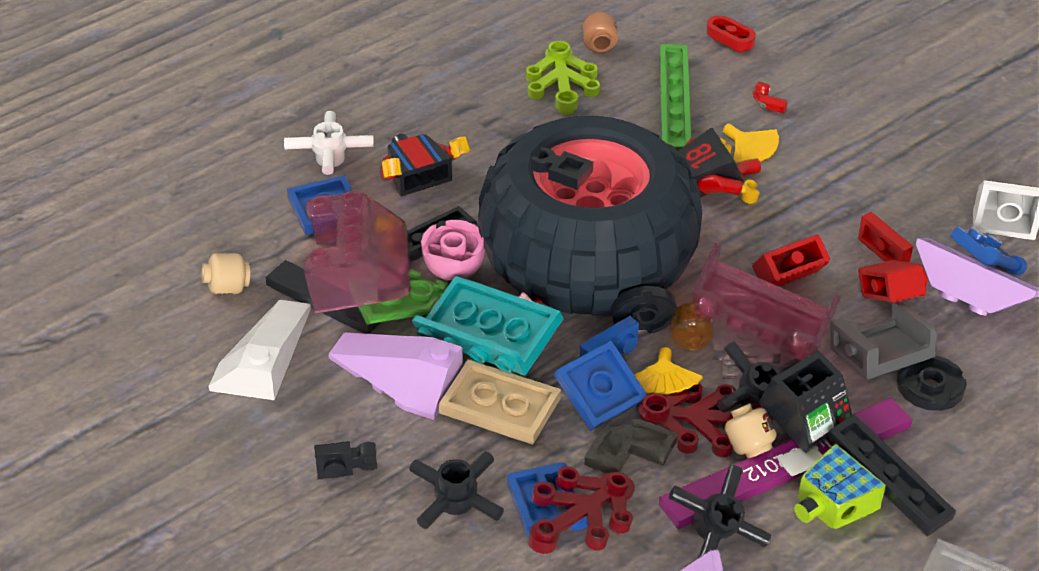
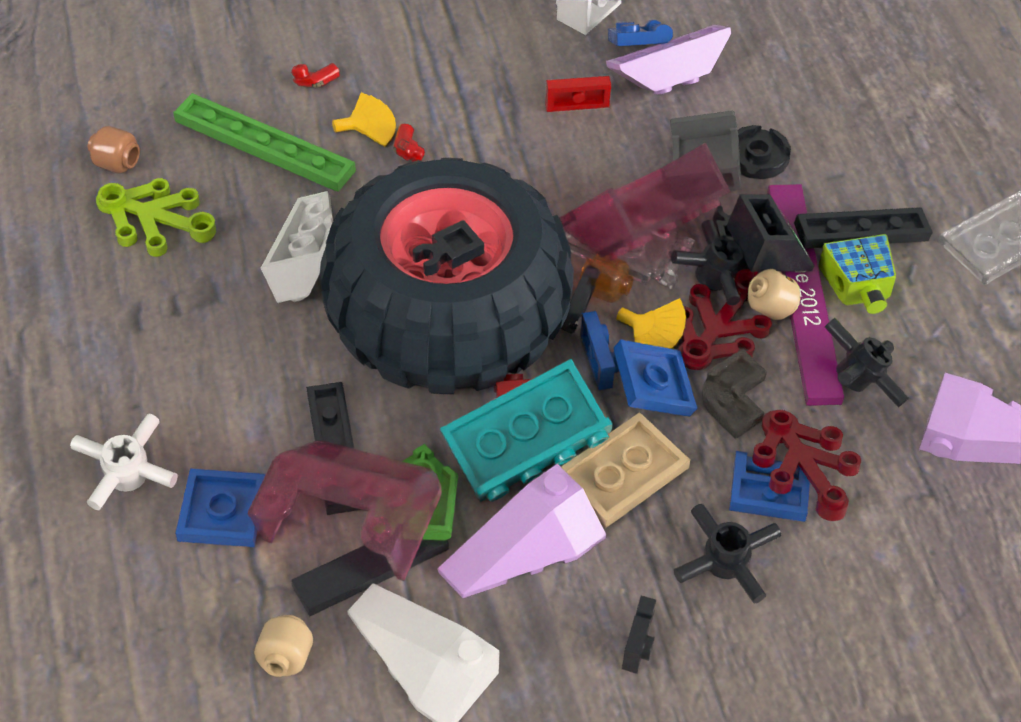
camera: 65 degrees left, 10 degrees up
(420, 162) = (215, 389): torso -> none
(453, 249) = (398, 413): bright pink cylinder -> none
(715, 168) = (389, 149): torso -> none
(731, 33) = (193, 54): red plate -> none
(792, 261) = (575, 166): red brick -> none
(799, 461) = (814, 281): white sticker -> none
(893, 281) = (646, 111): red brick -> none

